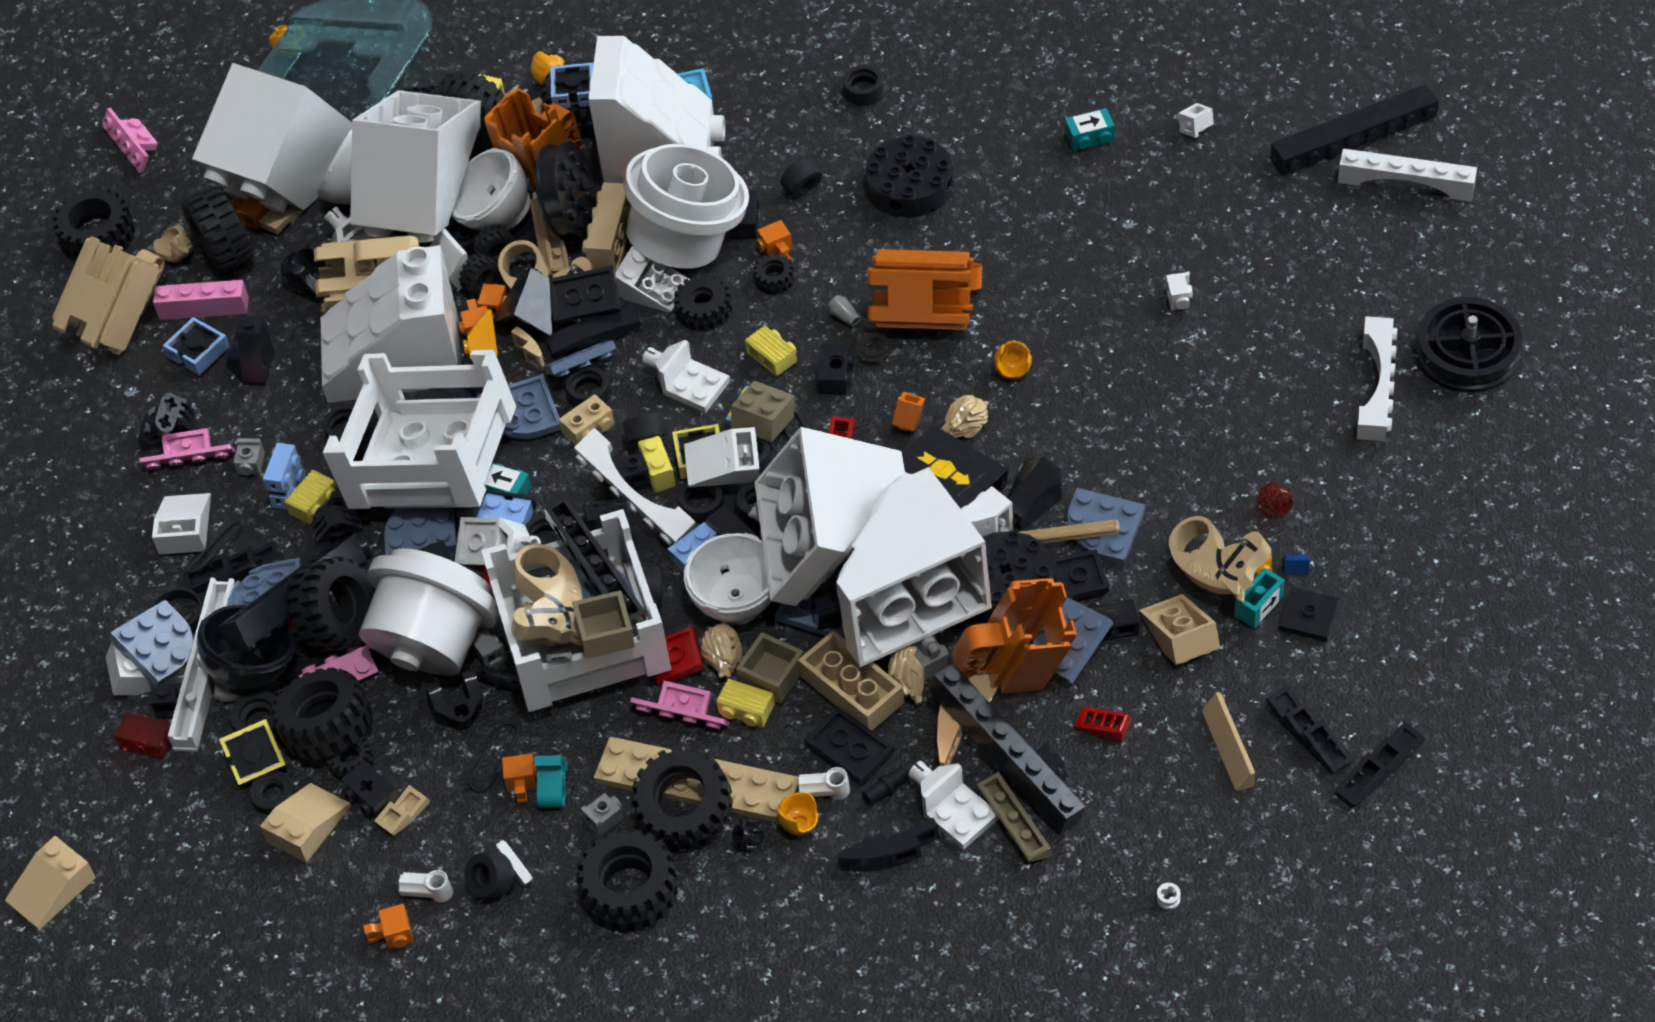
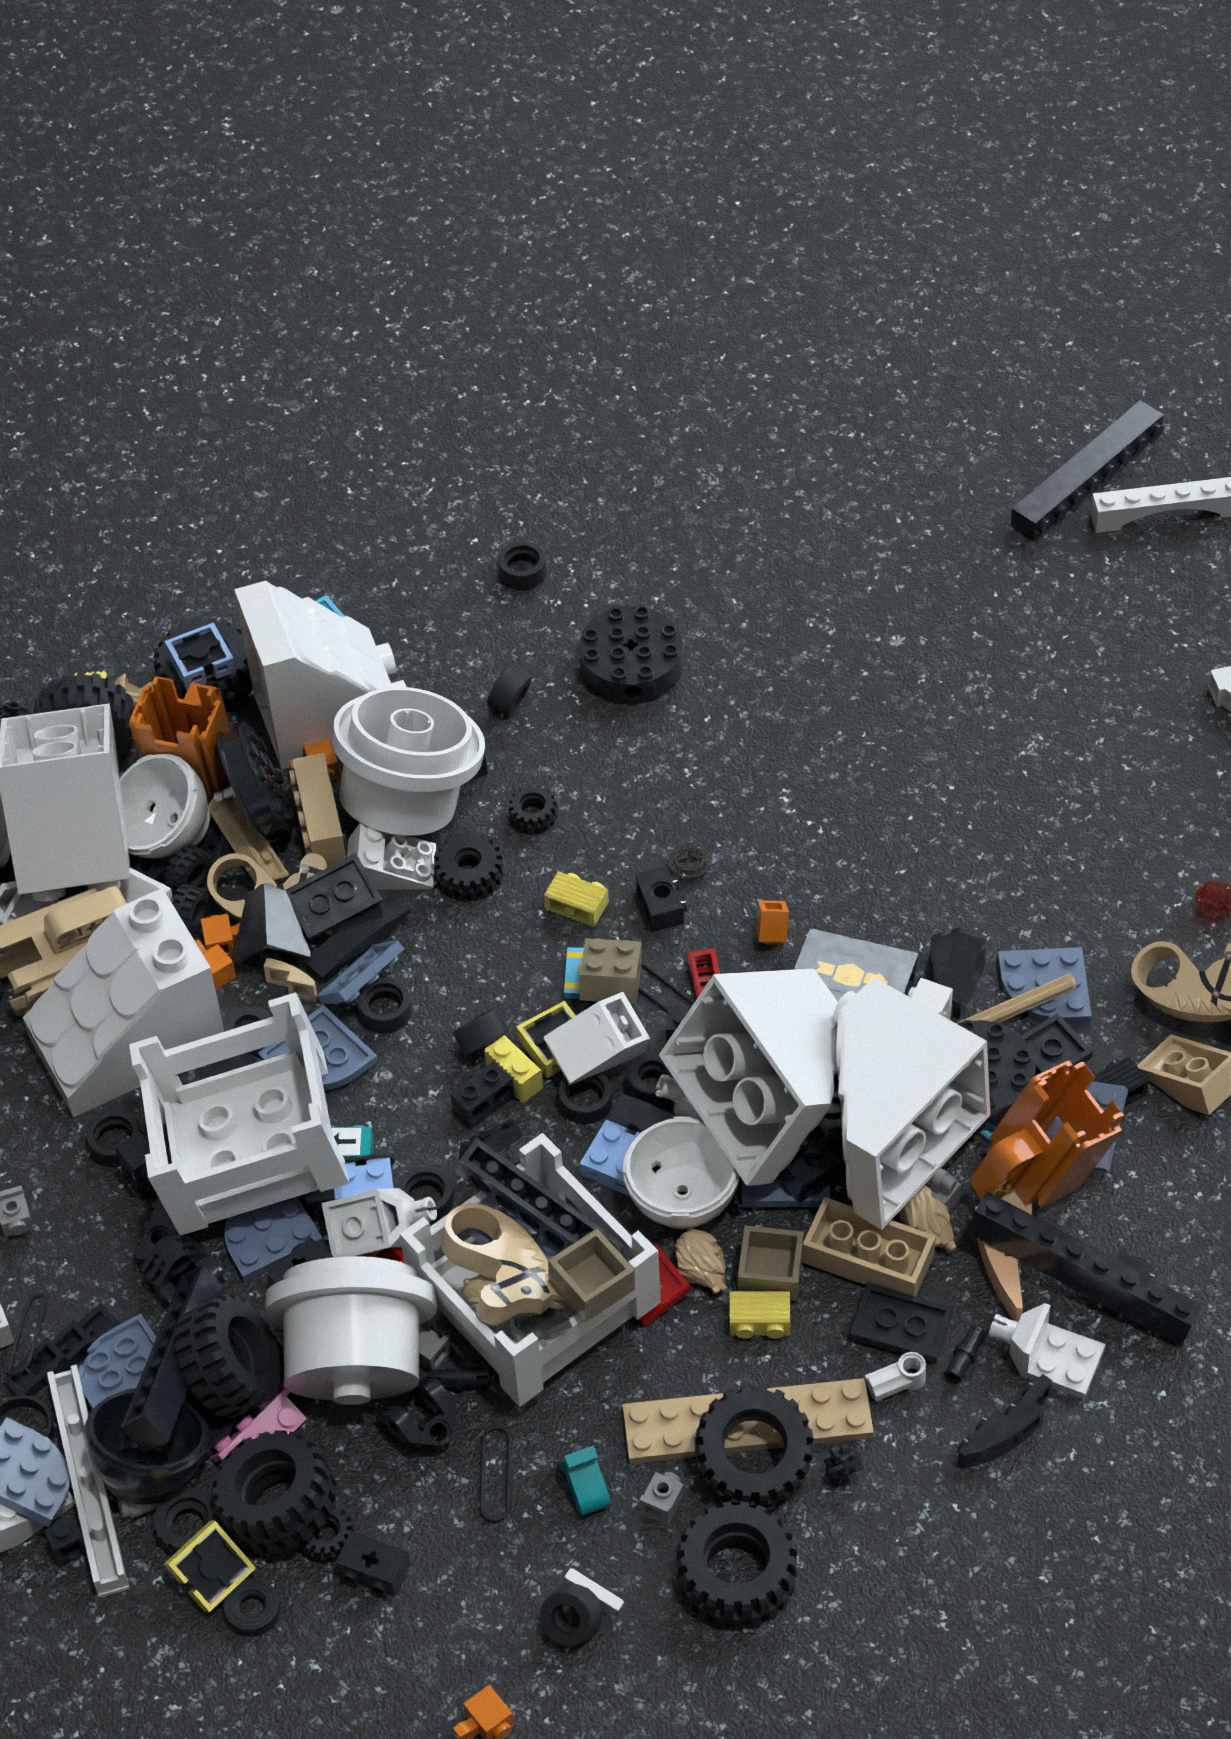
camera: 25 degrees left, 0 degrees up
(144, 735) = (59, 1591): clear red brick -> none
(283, 474) = (76, 1221): light blue piece -> none
(304, 821) = (310, 1628): tan slope -> none
(310, 495) = (117, 1235): light yellow brick -> none
(403, 811) = (422, 1574): tan slope -> none
(425, 885) = (495, 1655): white piece -> none
(481, 335) = (236, 981): light orange slope -> none
(520, 775) = (543, 1483): orange brick -> none
(542, 65) = (141, 644): light orange hair -> none
(585, 417) = (404, 1045): tan brick -> none
(671, 523) = (454, 1080): white arch -> none
(682, 701) = (687, 1335): bright pink bracket -> none
(685, 378) = (492, 959): white plate -> none
(774, 239) = (515, 770): orange brick -> none
(798, 813) = (889, 1420): light orange hair -> none
(843, 310) = (634, 828): light grey cone -> none
(923, 288) = (727, 777): orange piece -> none
(966, 416) = (836, 908): tan hair -> none
(1012, 359) = (857, 828): light orange hair -> none
(1014, 818) = (1126, 1343): dark tan slope -> none
(1089, 129) = (803, 547): teal brick -> none
(1106, 732) = (1164, 1196): red slope -> none
(1178, 290) = (994, 700): white brick -> none
(1195, 119) = (913, 504): white brick -> none

